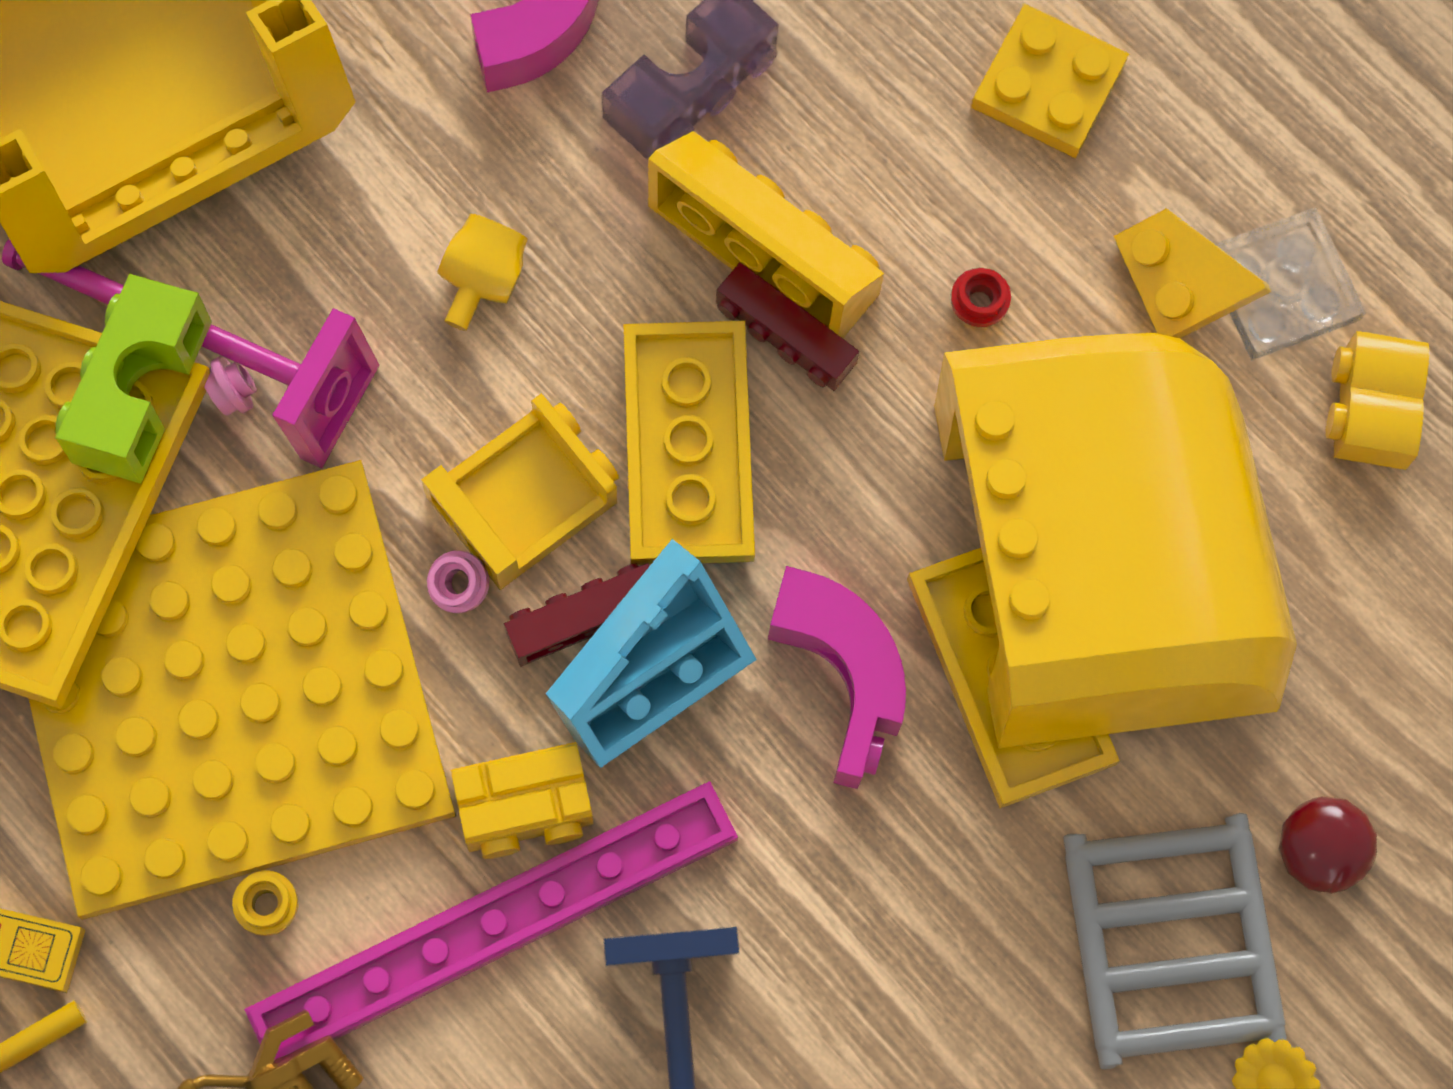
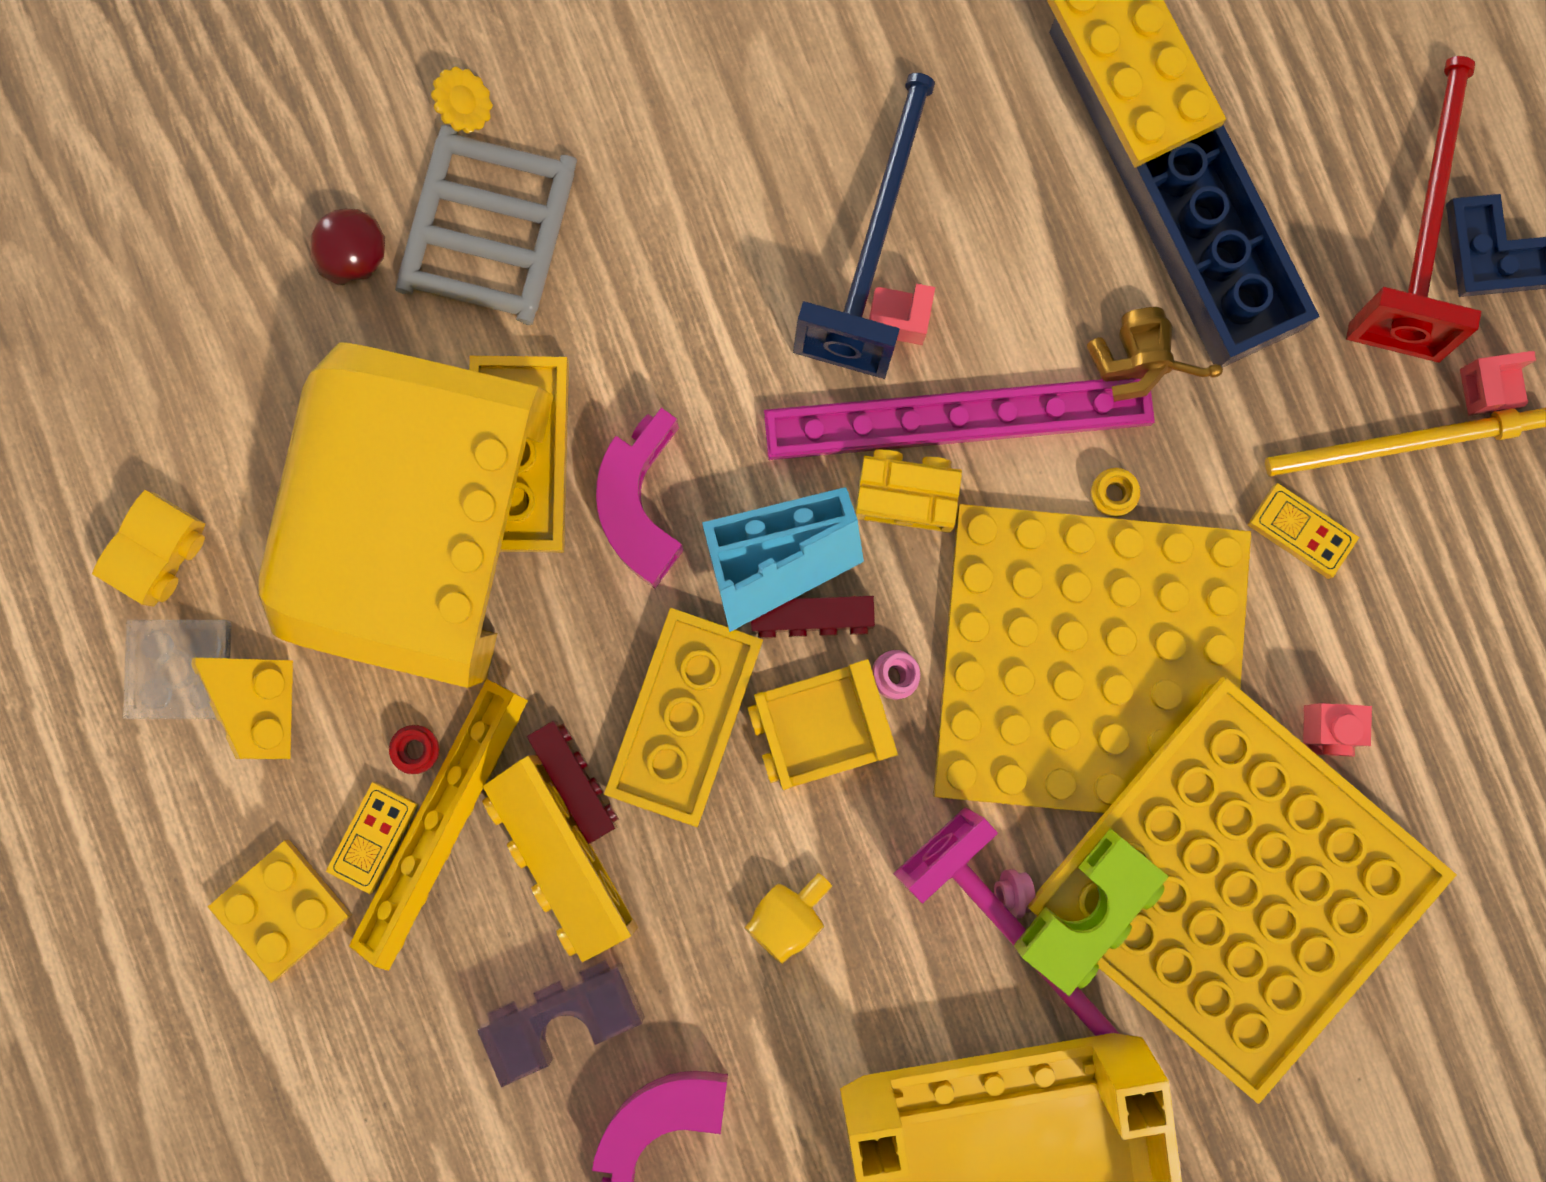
camera: 155 degrees left, 10 degrees up
(616, 1023) = (904, 311): none -> coral panel
(917, 229) = (437, 825): none -> yellow plate
(984, 190) = (372, 837): none -> yellow tile

